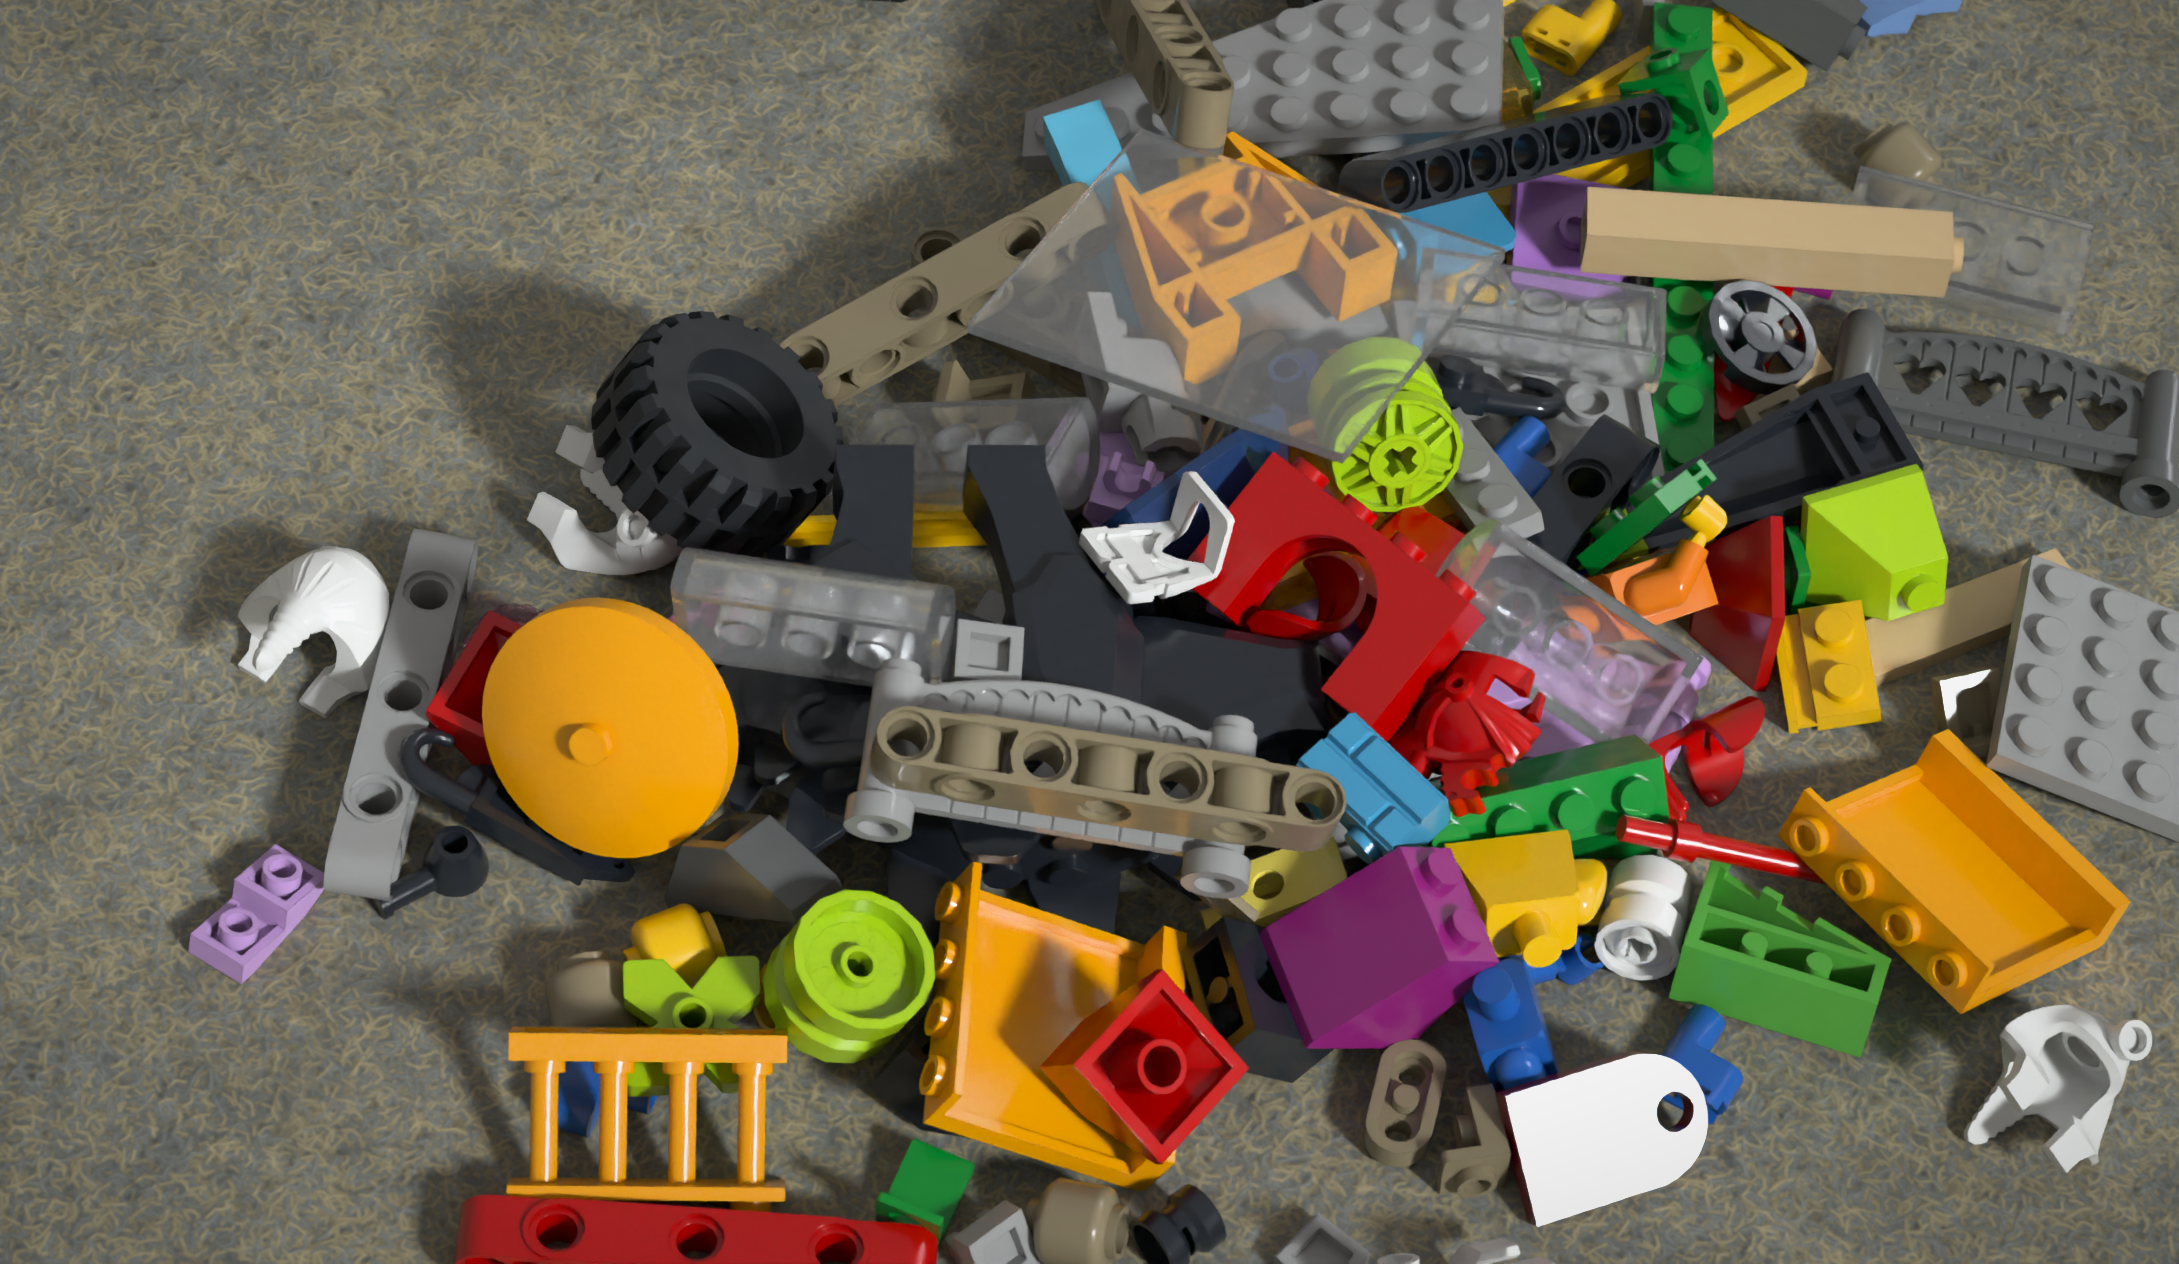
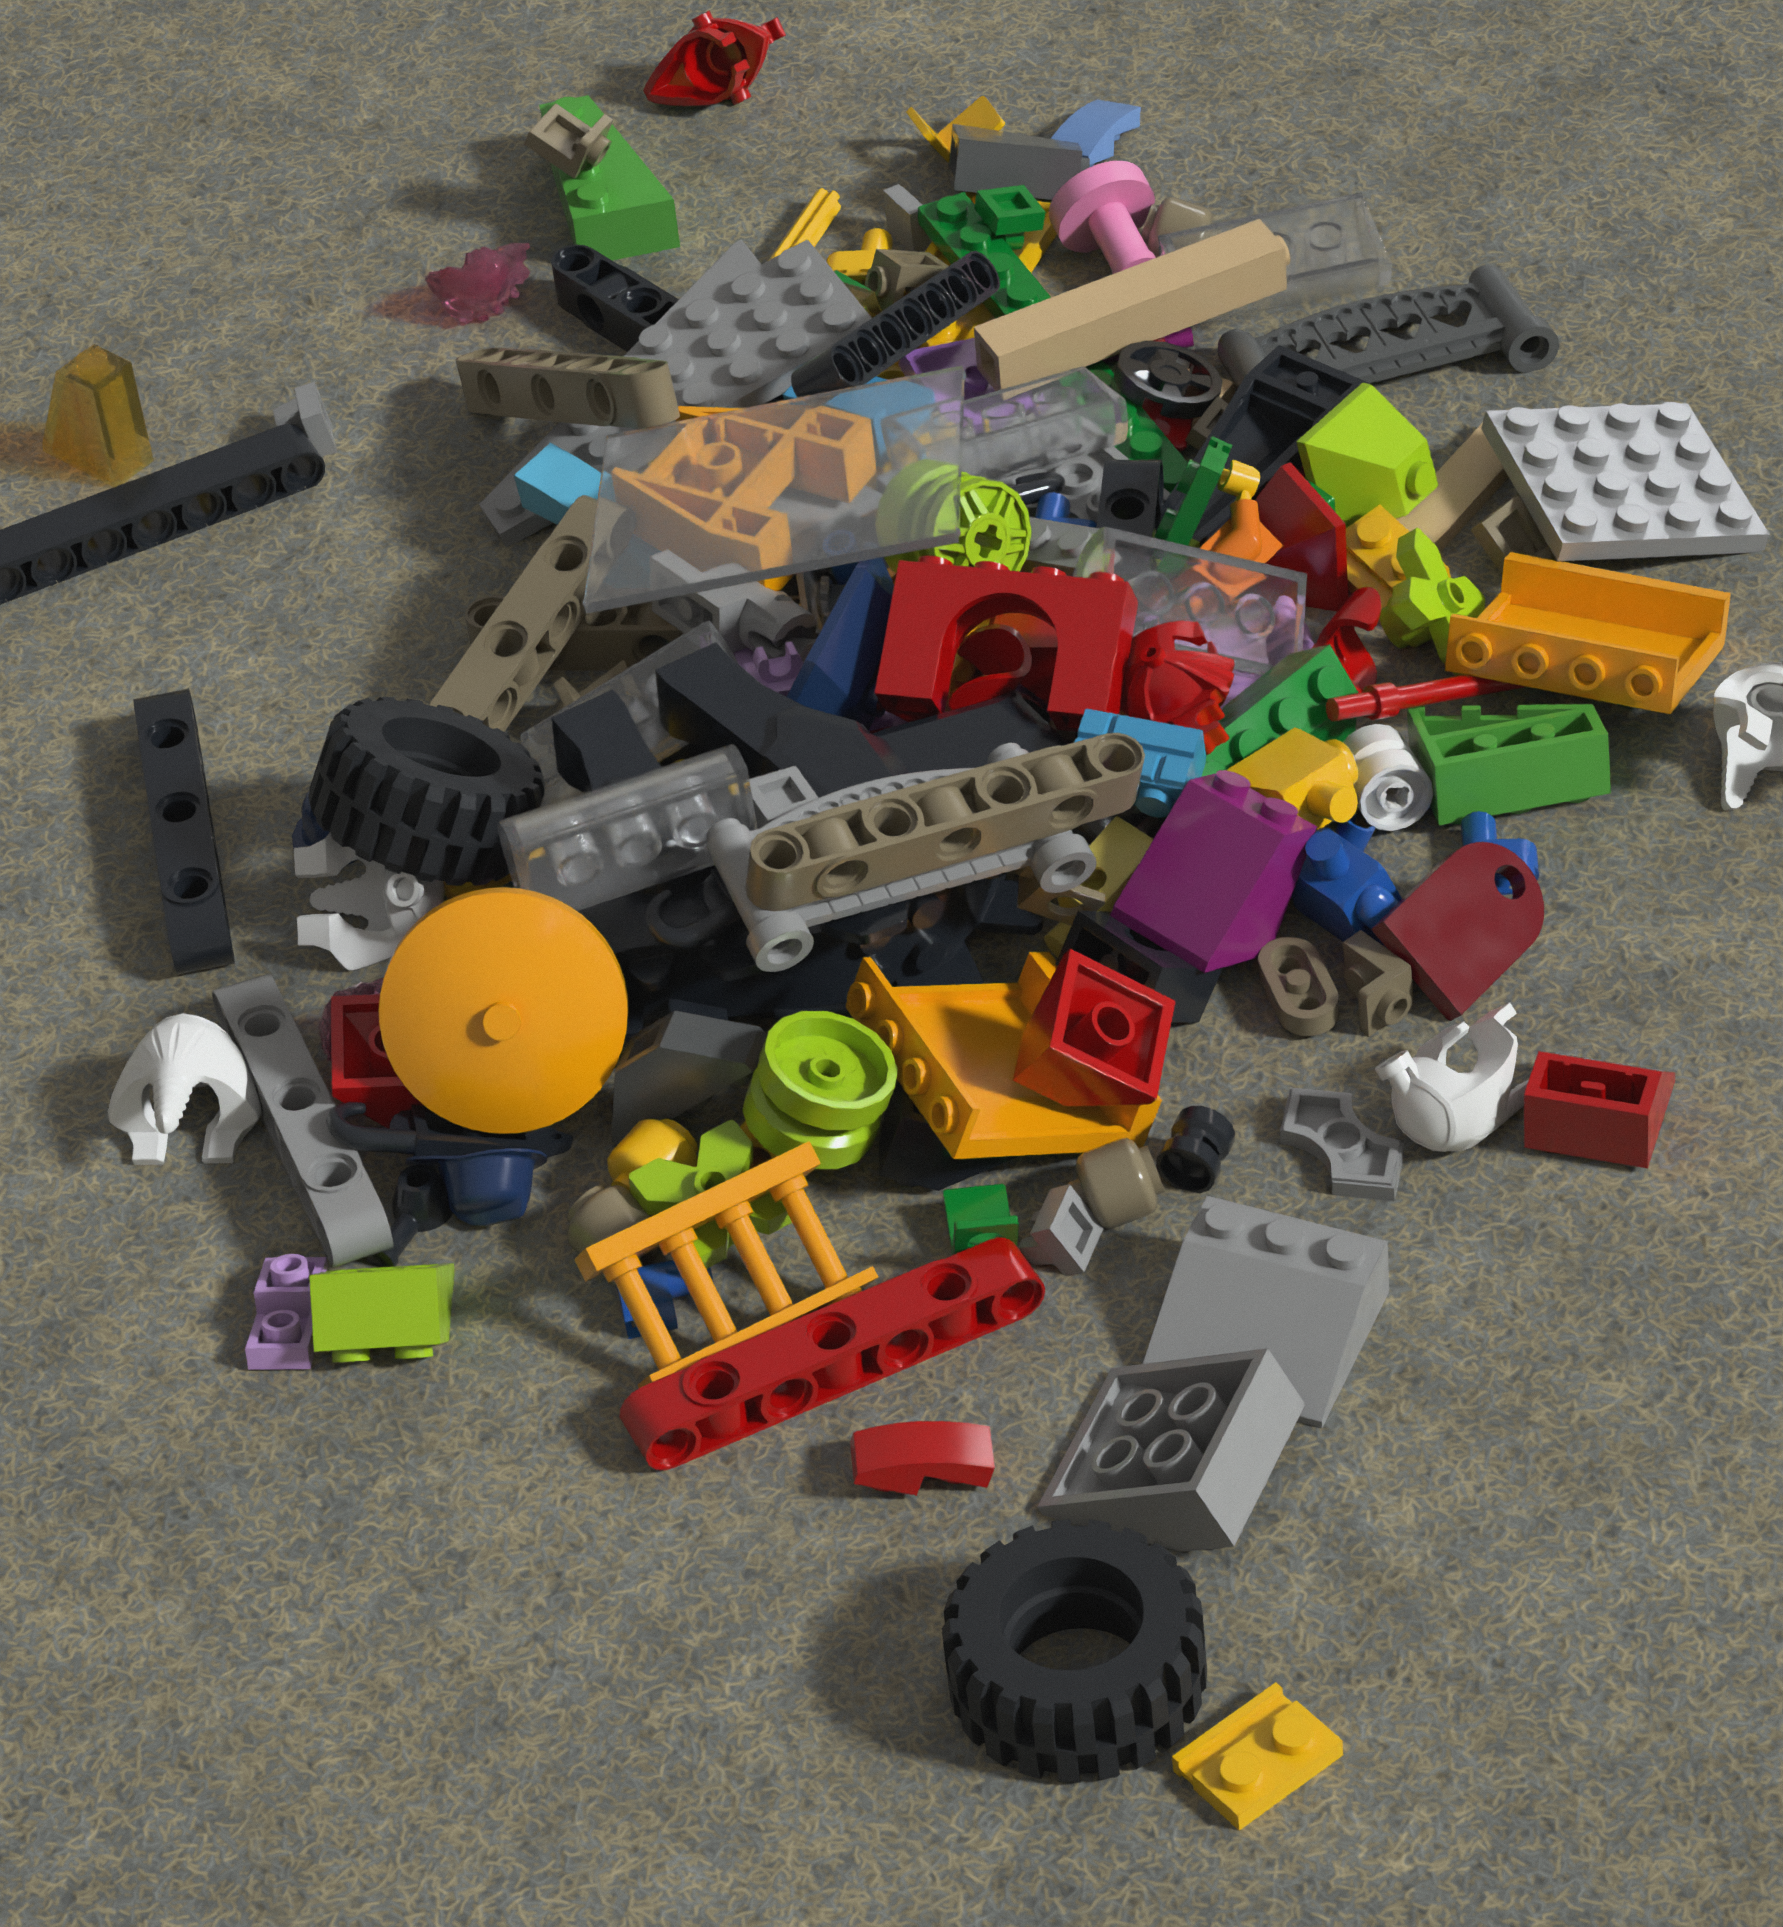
camera: 20 degrees left, 10 degrees down
(336, 961) = (381, 1309): none -> lime slope
(511, 887) = (486, 1184): none -> dark blue piece
(513, 332) = (183, 832): none -> black beam
(1134, 551) = (839, 684): white piece -> none
(1582, 69) = (899, 272): none -> dark tan bracket
(1671, 68) = (969, 232): green bracket -> none
(1738, 57) = (1010, 213): none -> green tile
(1833, 105) = (1104, 212): none -> bright pink piece
(1833, 743) = (1427, 597): none -> lime plant

